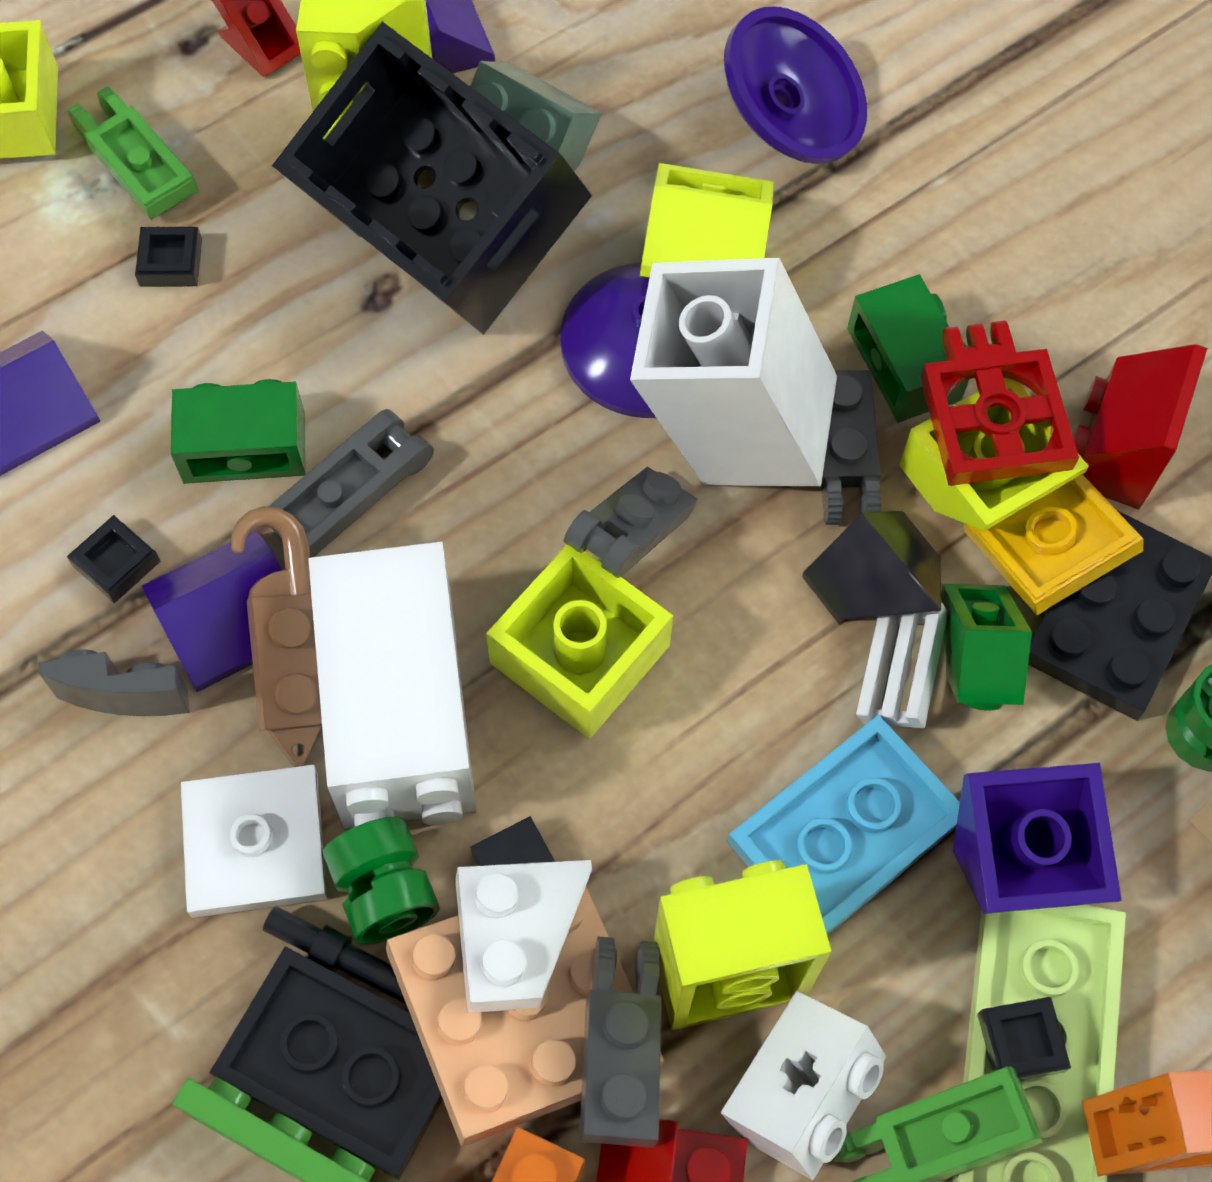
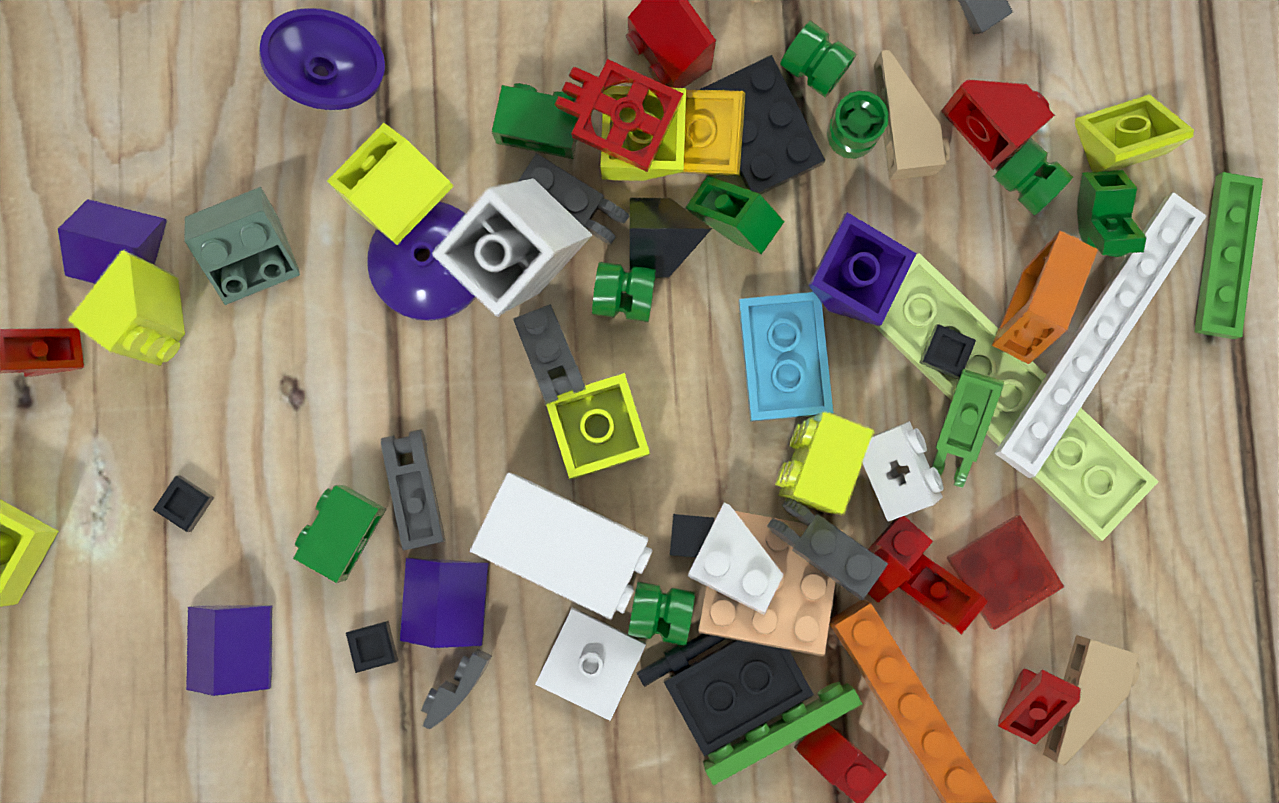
camera: 55 degrees left, 20 degrees up
(134, 155) = (95, 484): bright green hinge -> none
(283, 637) = (490, 583): medium nougat plate -> none
(428, 119) = (221, 365): black container -> none
(774, 560) = (609, 288): none -> green wheel
(879, 665) = (710, 277): white tile -> none

